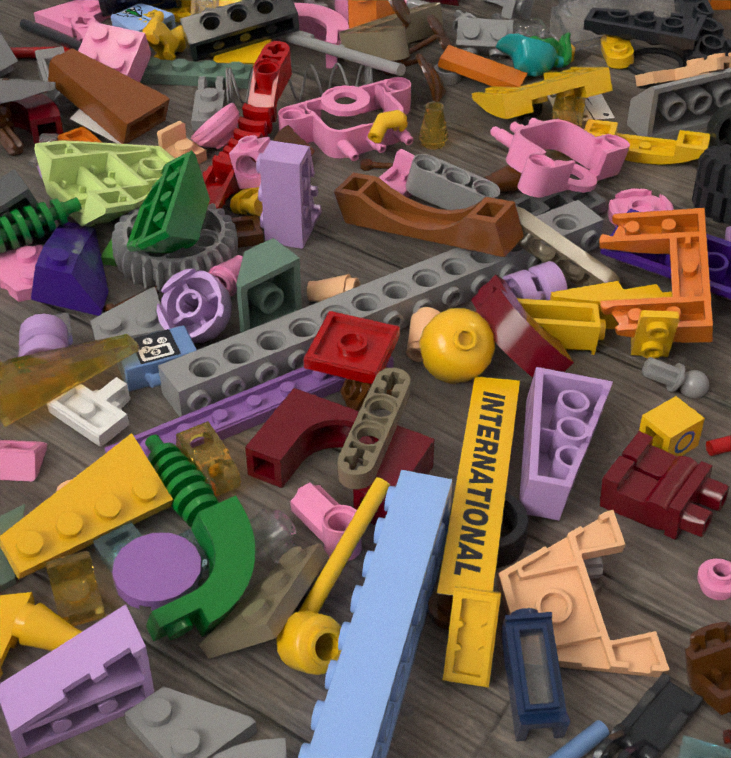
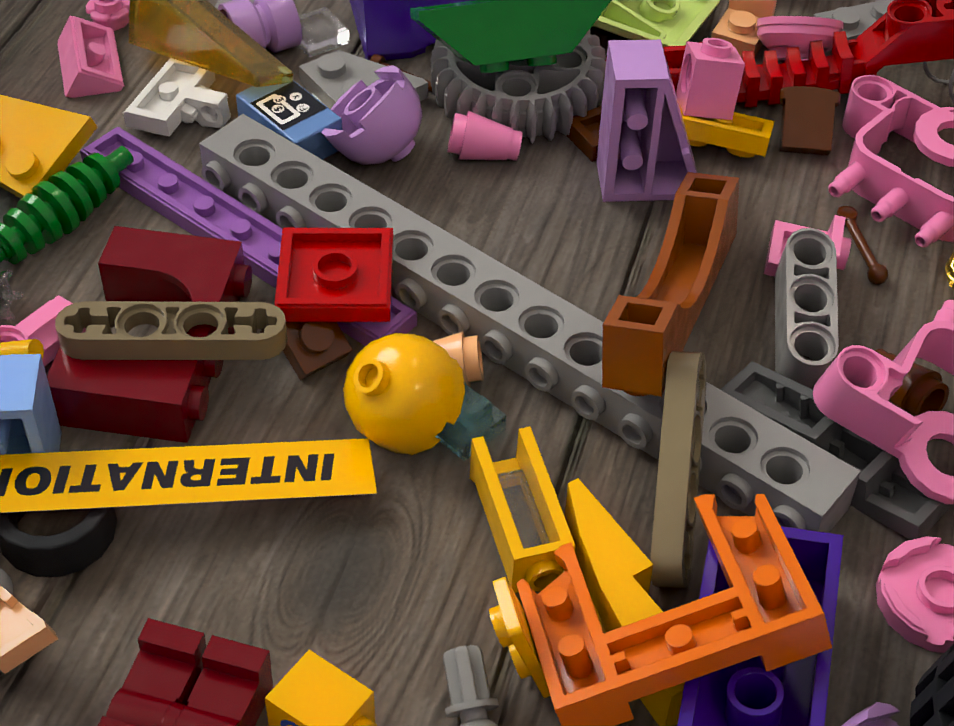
camera: 70 degrees right, 5 degrees up
(210, 458) = (116, 199): clear yellow leg -> none
(268, 284) = (433, 162): sand green slope -> none
(327, 288) = (501, 242): light nougat cone -> none
(387, 120) = (918, 188): yellow arm -> none
(517, 331) = (437, 449): dark red arch -> none
(537, 281) = (609, 468): lavender wheel -> none
(557, 434) = (235, 554): lavender wedge -> none

